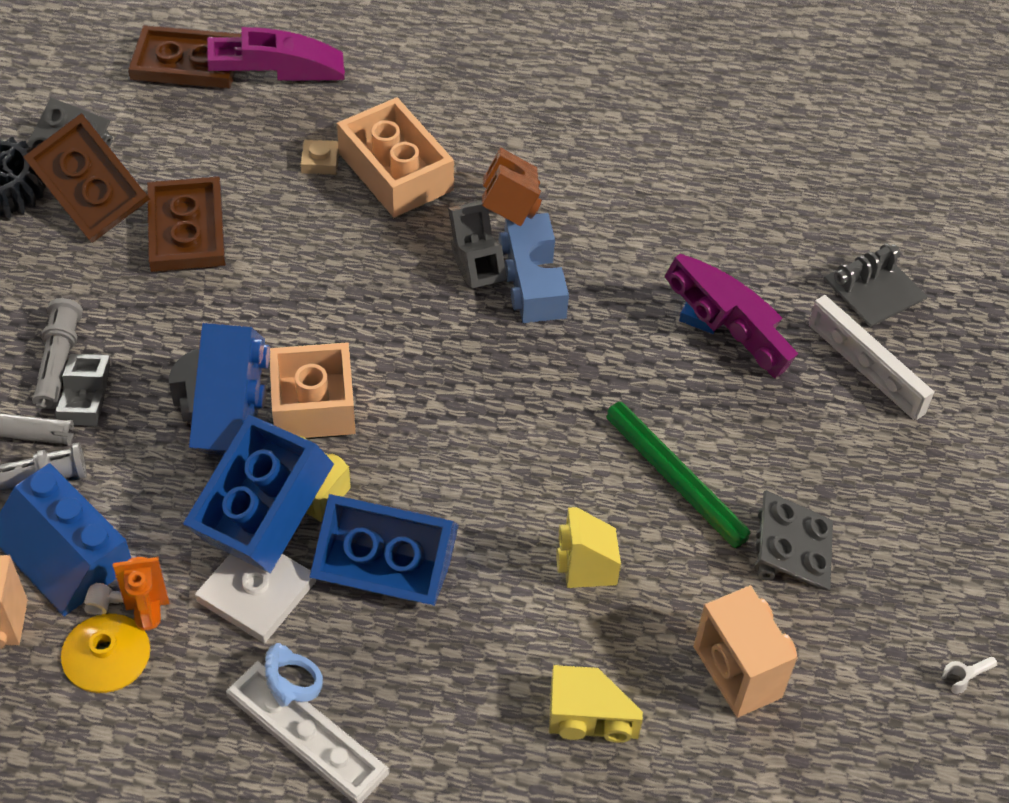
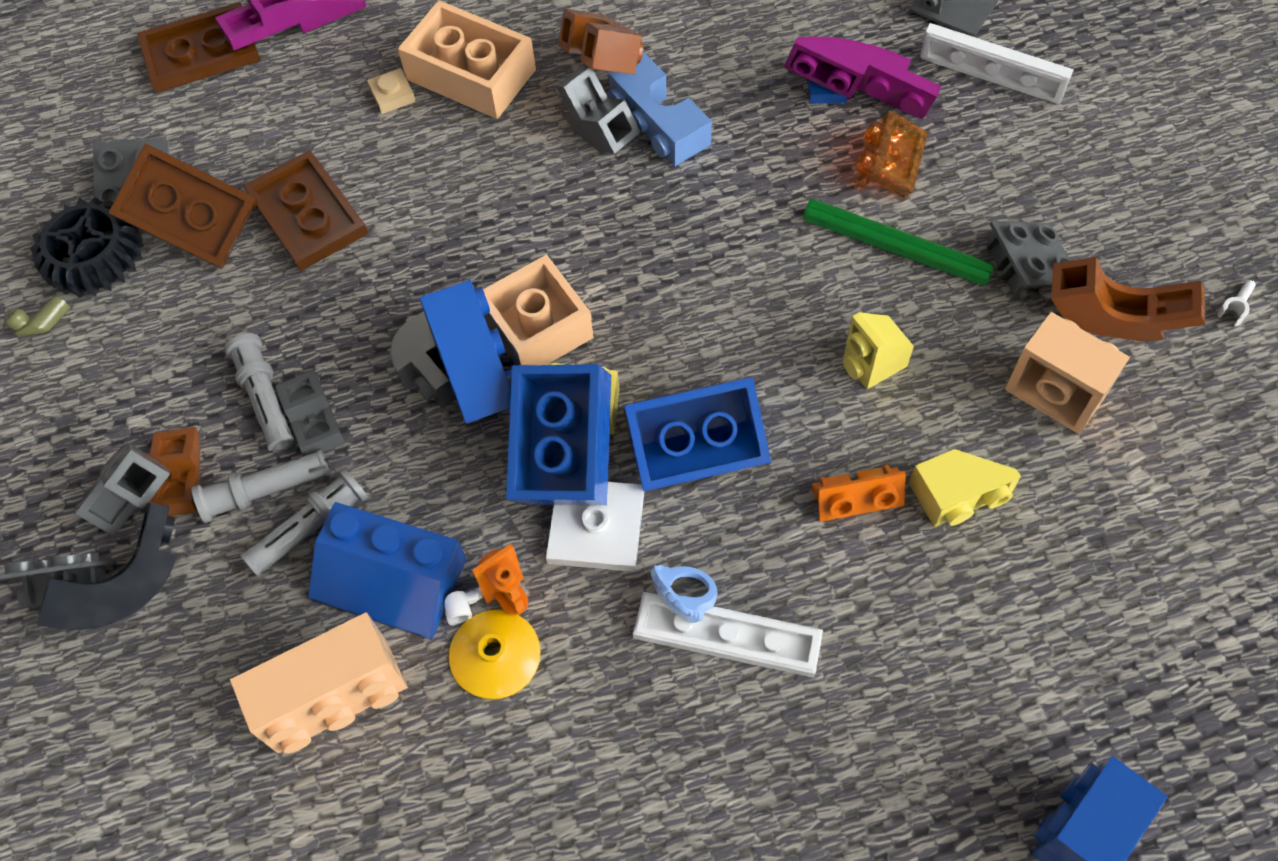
camera: 20 degrees left, 10 degrees up
(489, 670) = (871, 492): none -> orange hinge
(720, 396) = (891, 154): none -> clear orange bracket
(833, 619) = (1121, 311): none -> dark orange arch

